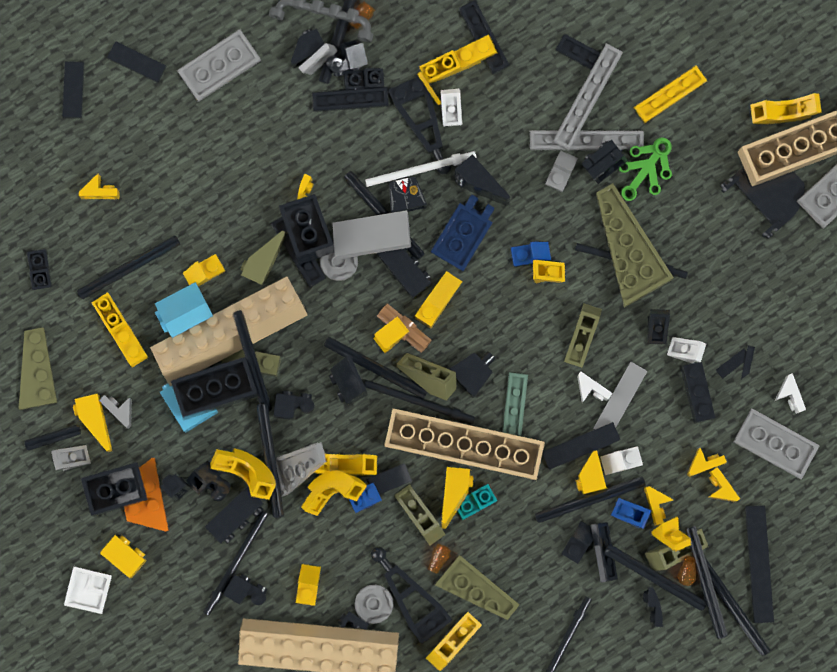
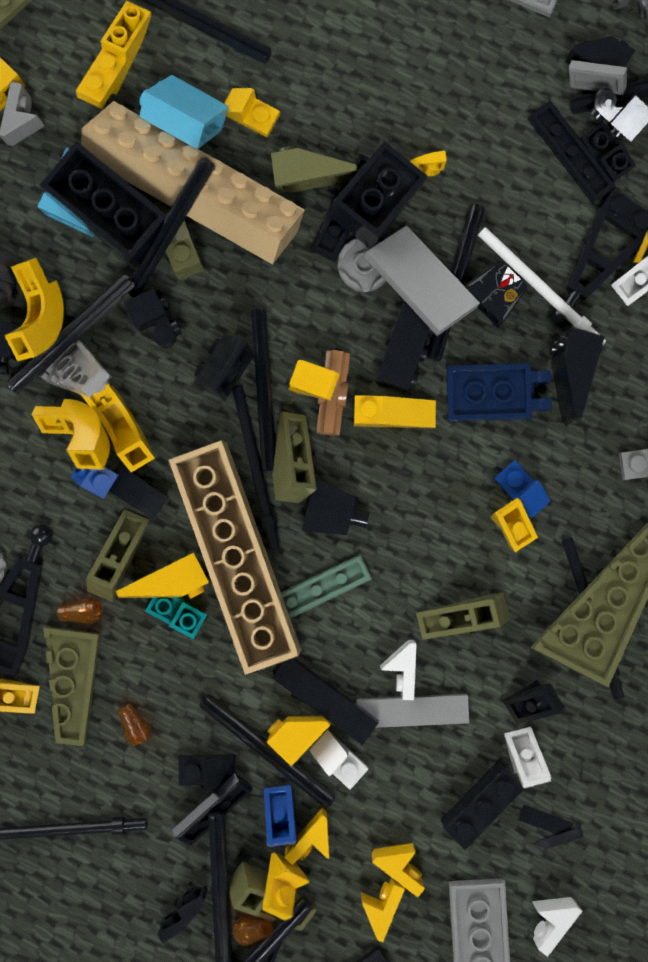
camera: 60 degrees right, 5 degrees up
(526, 568) = (133, 725): none -> clear orange cone

